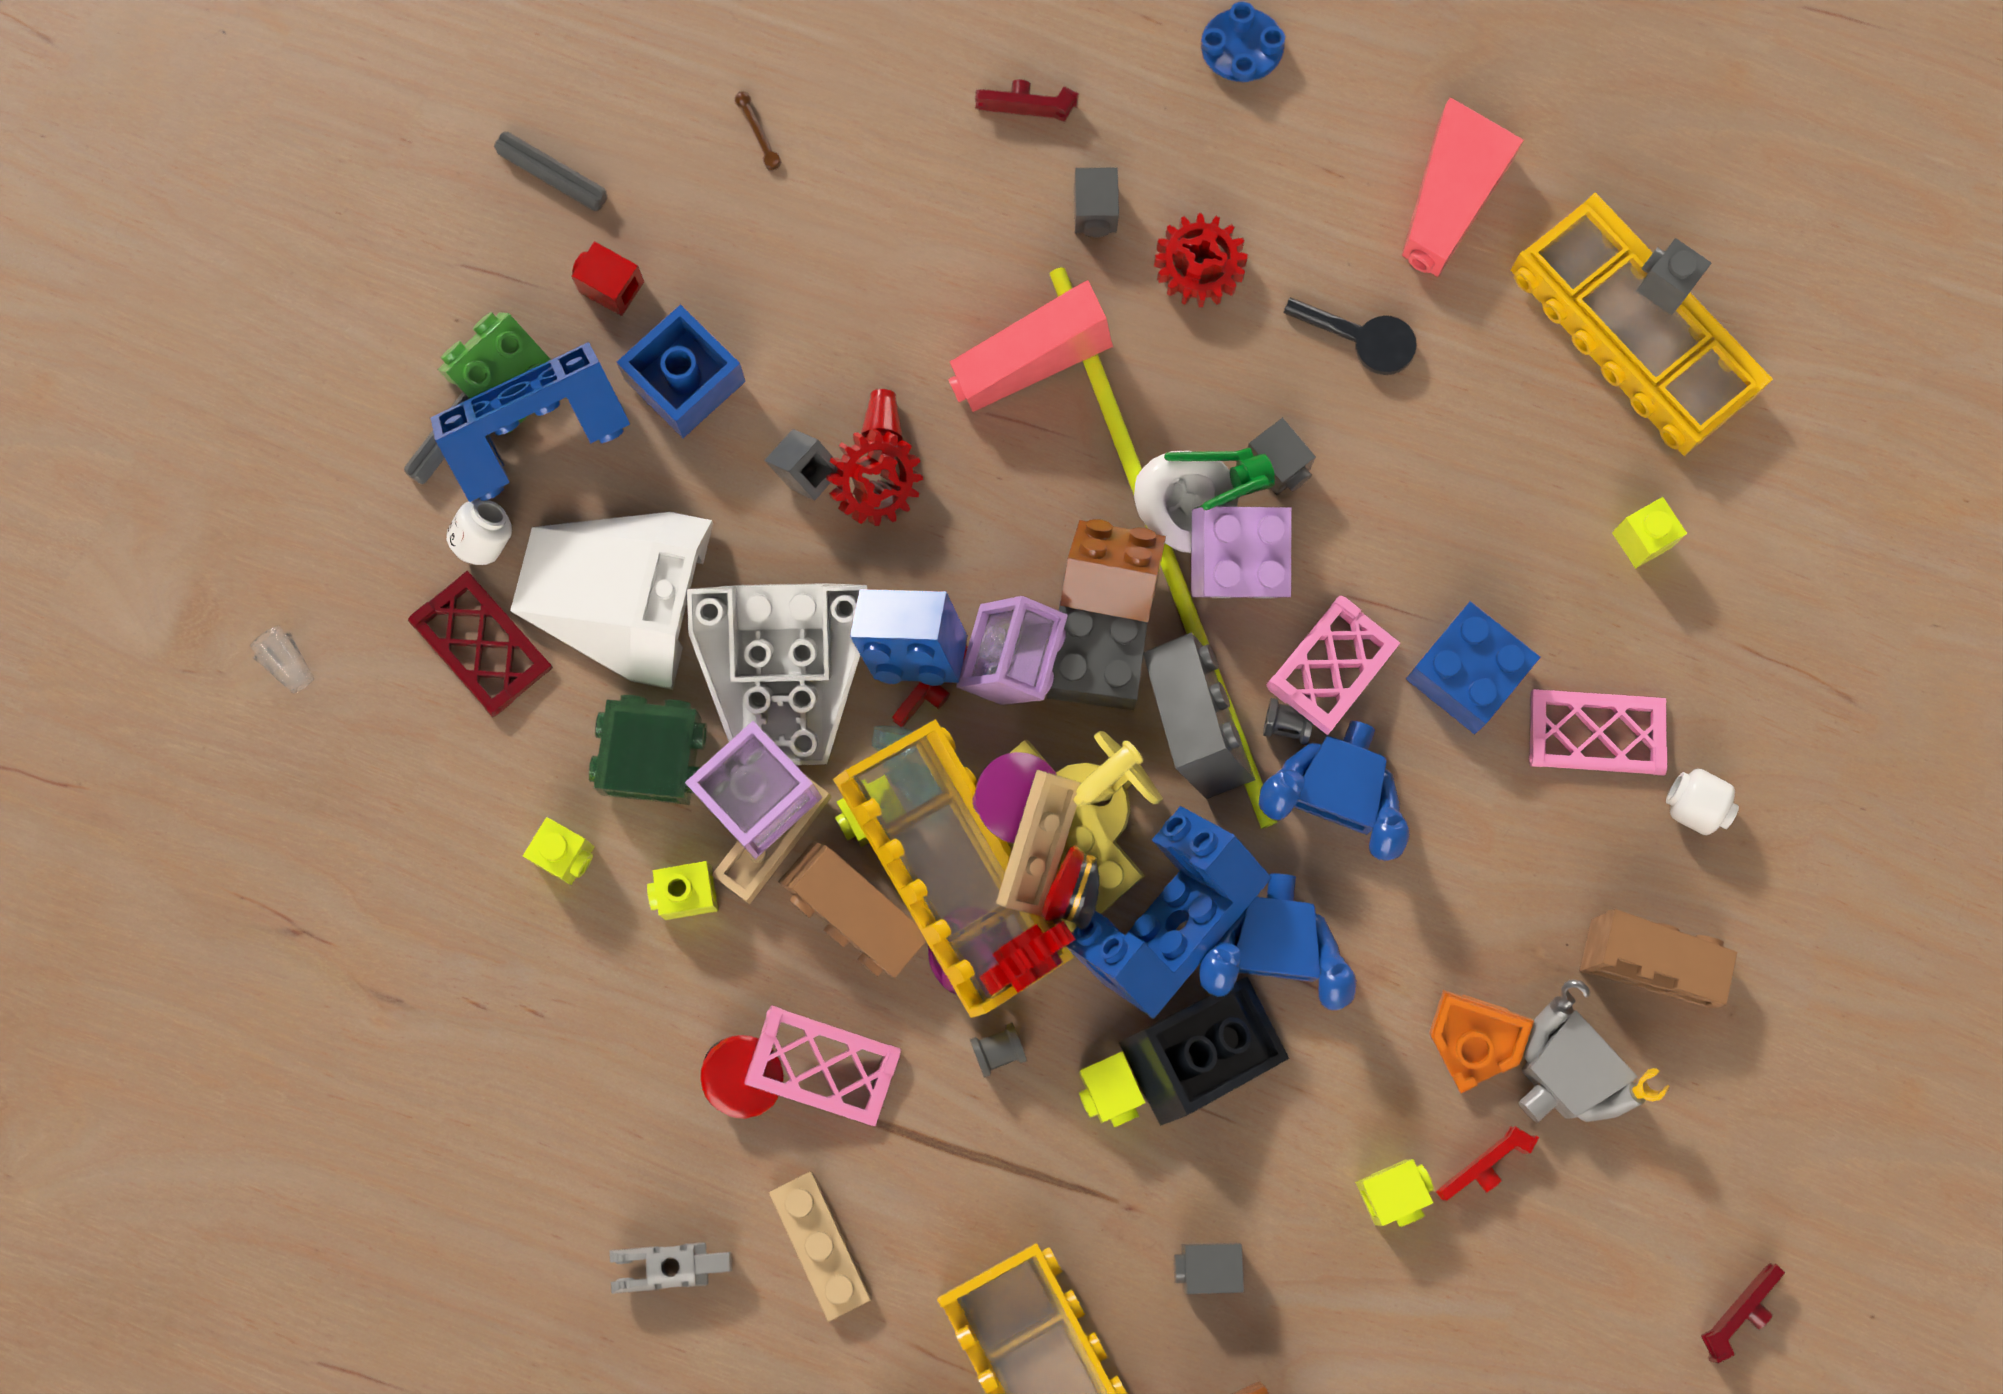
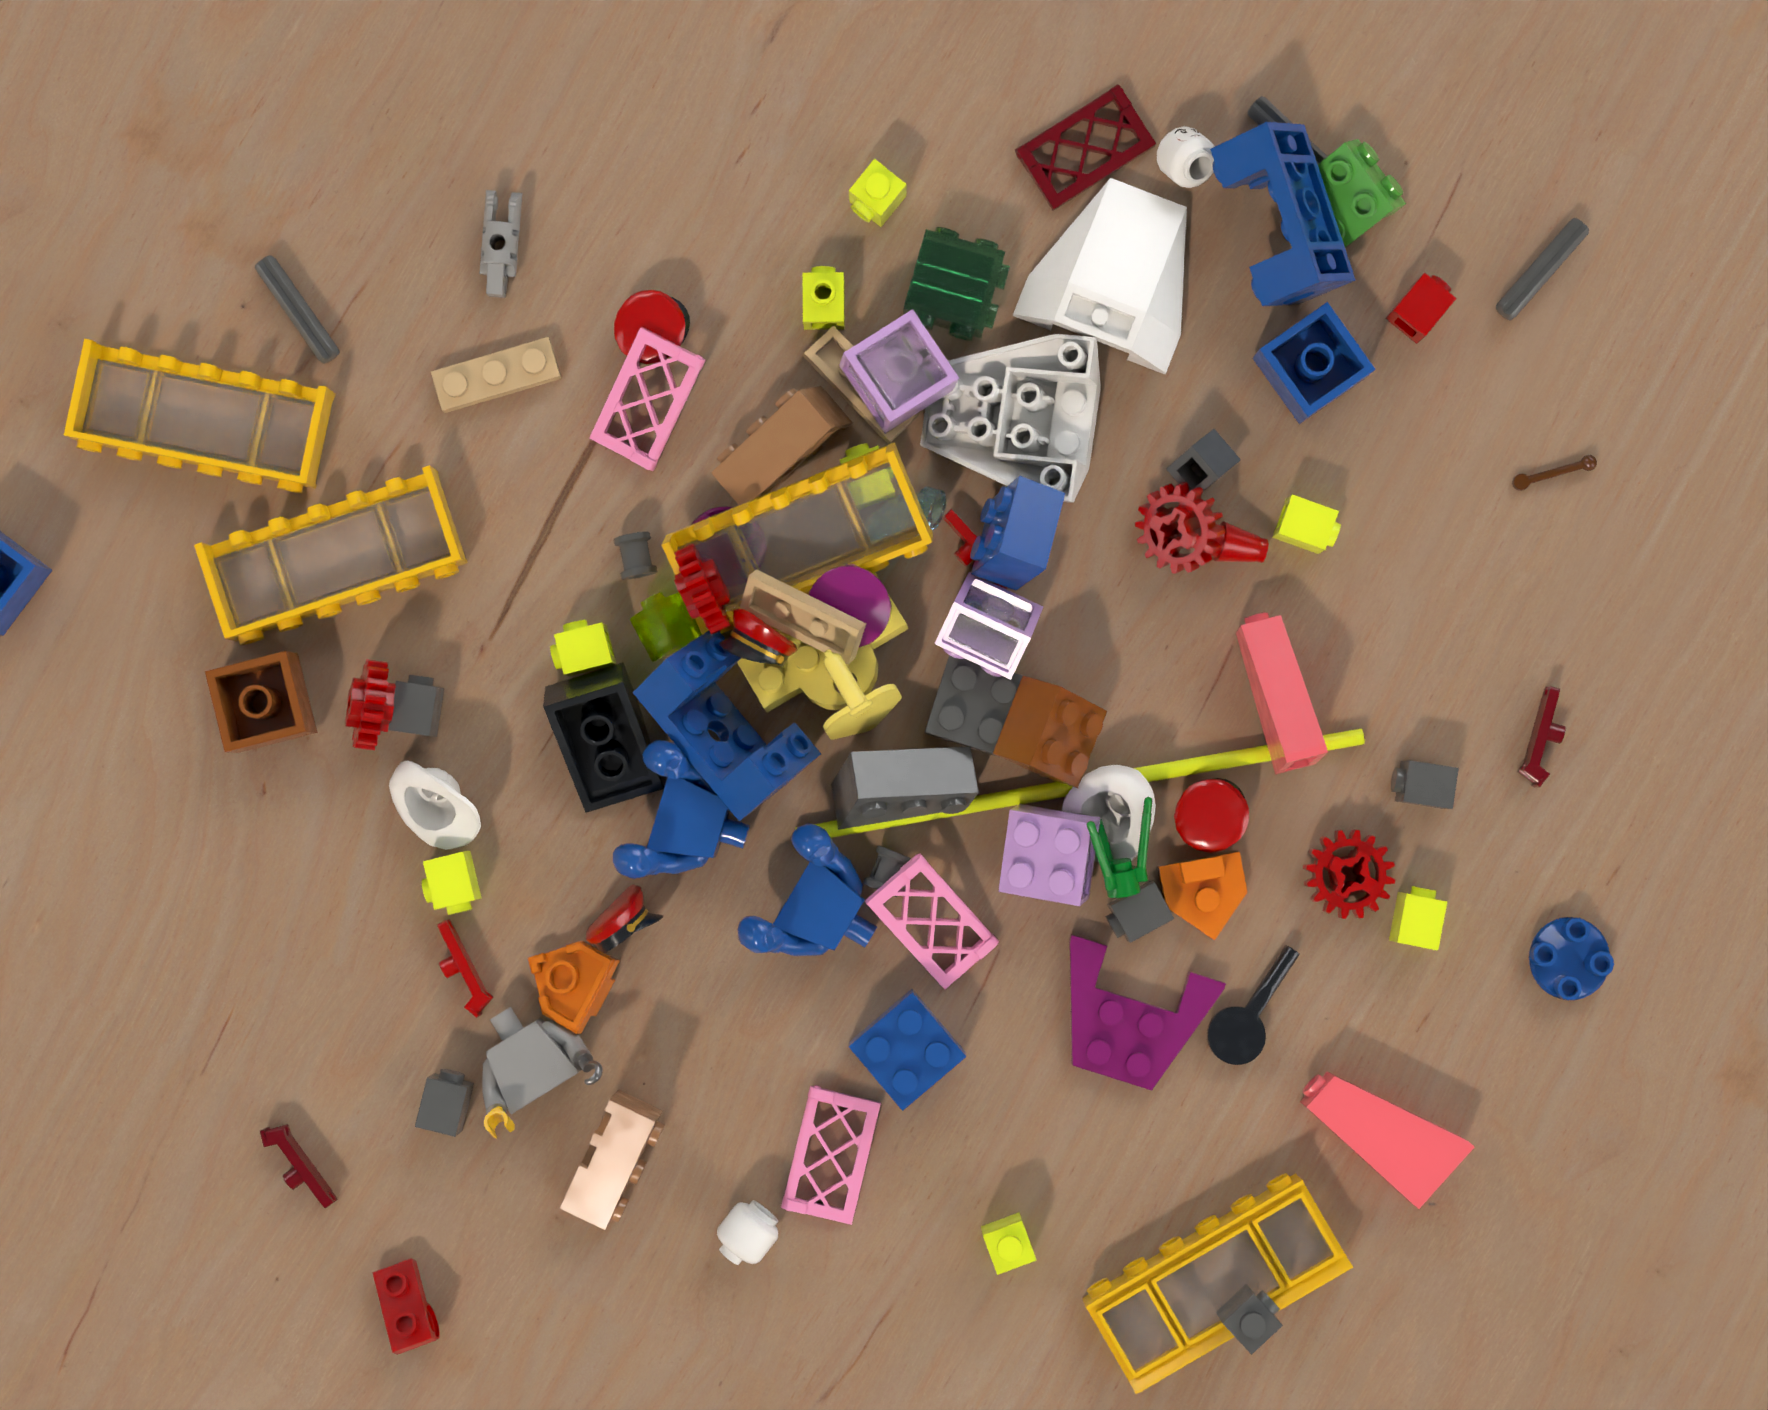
camera: 105 degrees right, 10 degrees up
(849, 355) = (1307, 524): none -> neon yellow brick
(1070, 1001) = (664, 625): none -> clear neon green brick
(1166, 401) = (1212, 815): none -> red piece
(1219, 1318) = (370, 704): none -> red gear
(1233, 188) = (1418, 918): none -> neon yellow brick
(1243, 398) = (1204, 890): none -> orange plate
(1316, 1227) = (433, 806): none -> white hat
(1401, 993) = (621, 920): none -> red piece
(1408, 452) = (1123, 1034): none -> magenta wing
(1639, 1156) = (445, 1103): none -> dark grey brick
(1870, 1161) = (404, 1307): none -> red plate

